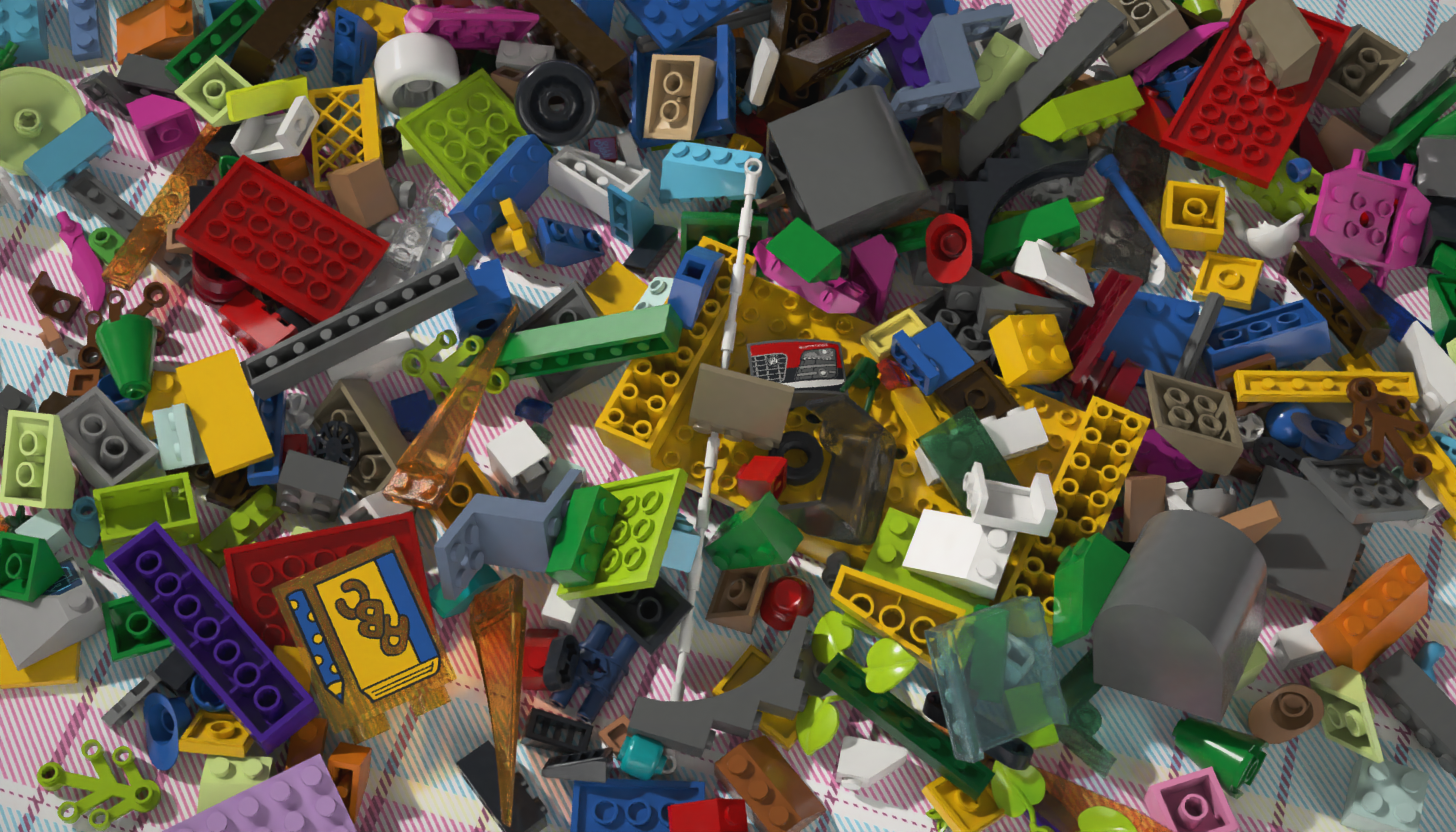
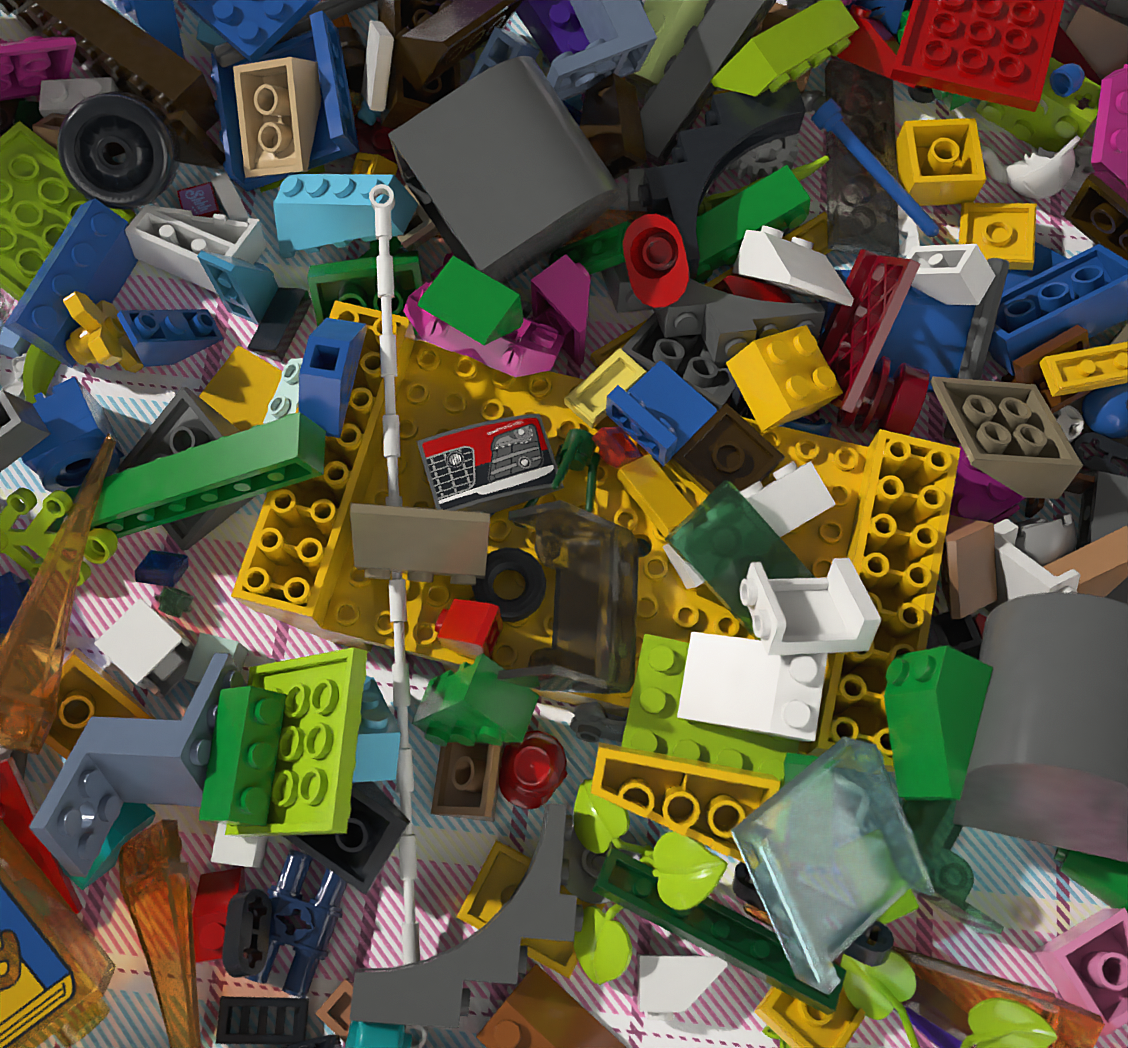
camera: 10 degrees left, 10 degrees up
(1175, 297) = (952, 273): none -> white slope

